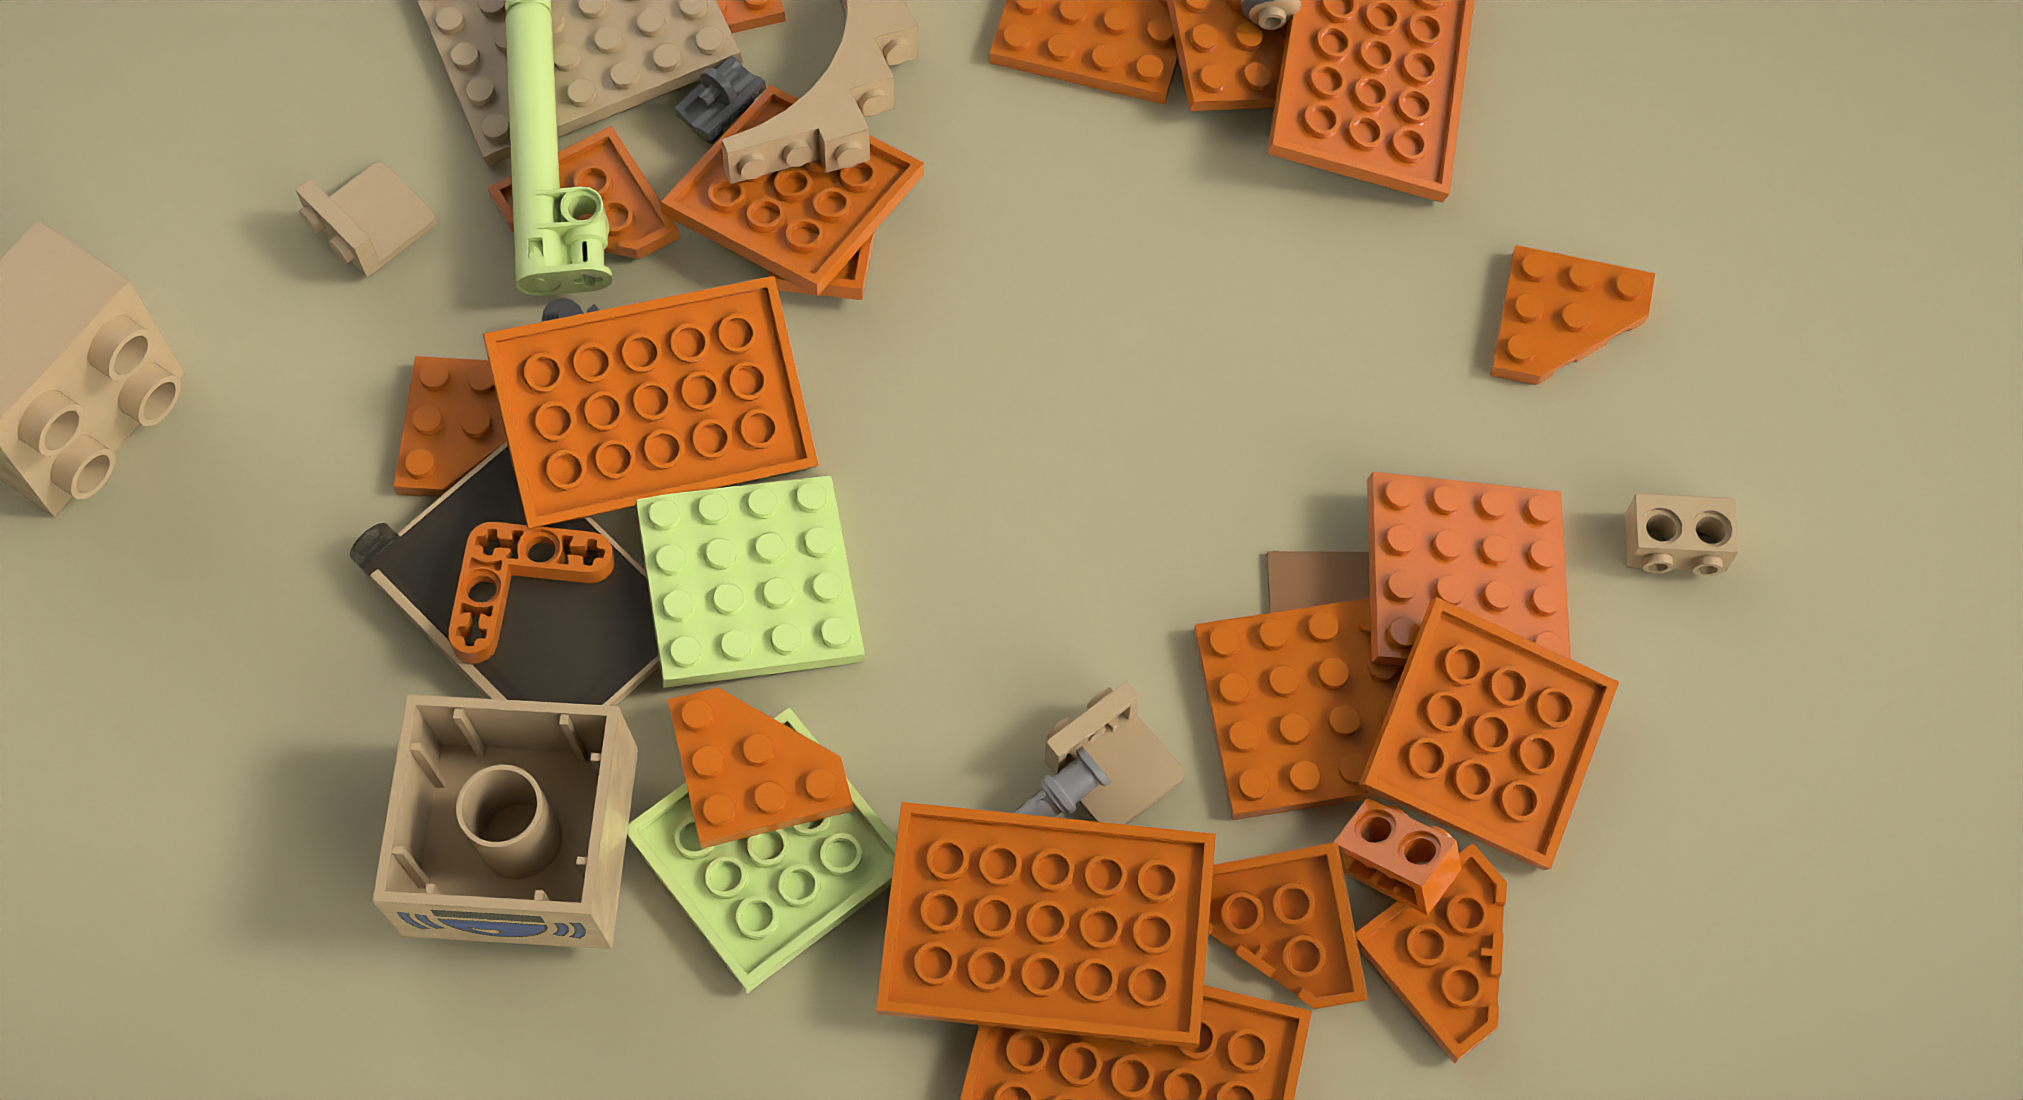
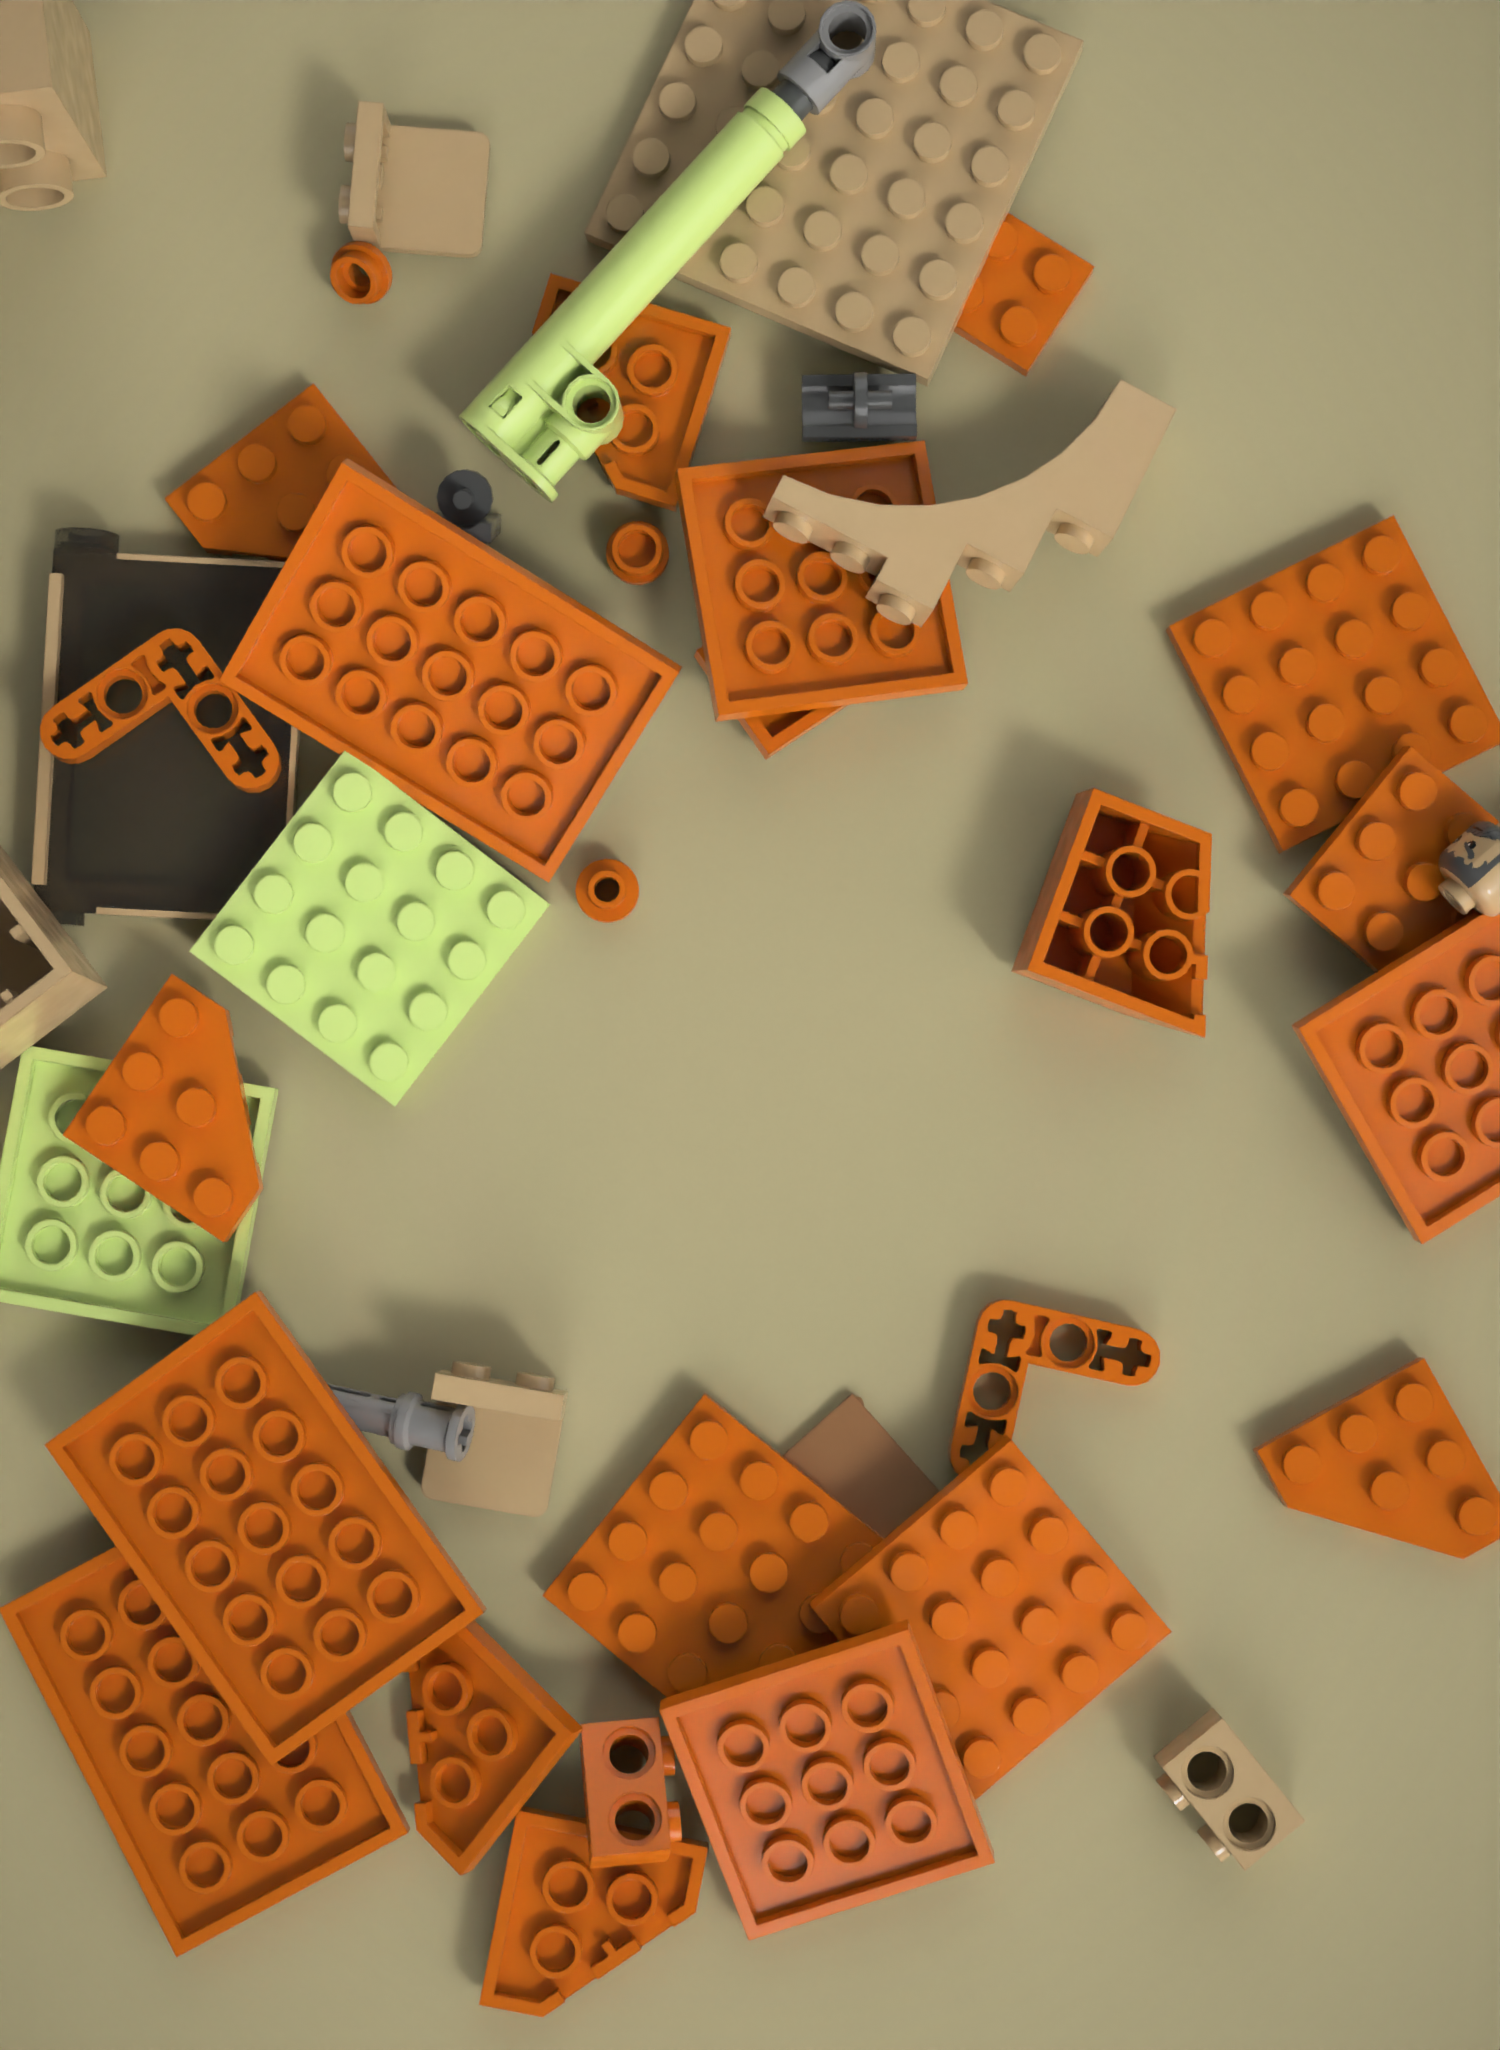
camera: 45 degrees right, 20 degrees up
(387, 295) = (351, 282): none -> orange plate
(682, 272) = (637, 553): none -> orange plate
(853, 453) = (613, 910): none -> orange plate
(1125, 189) = (1124, 913): none -> orange wedge
(1329, 437) = (1035, 1349): none -> orange beam

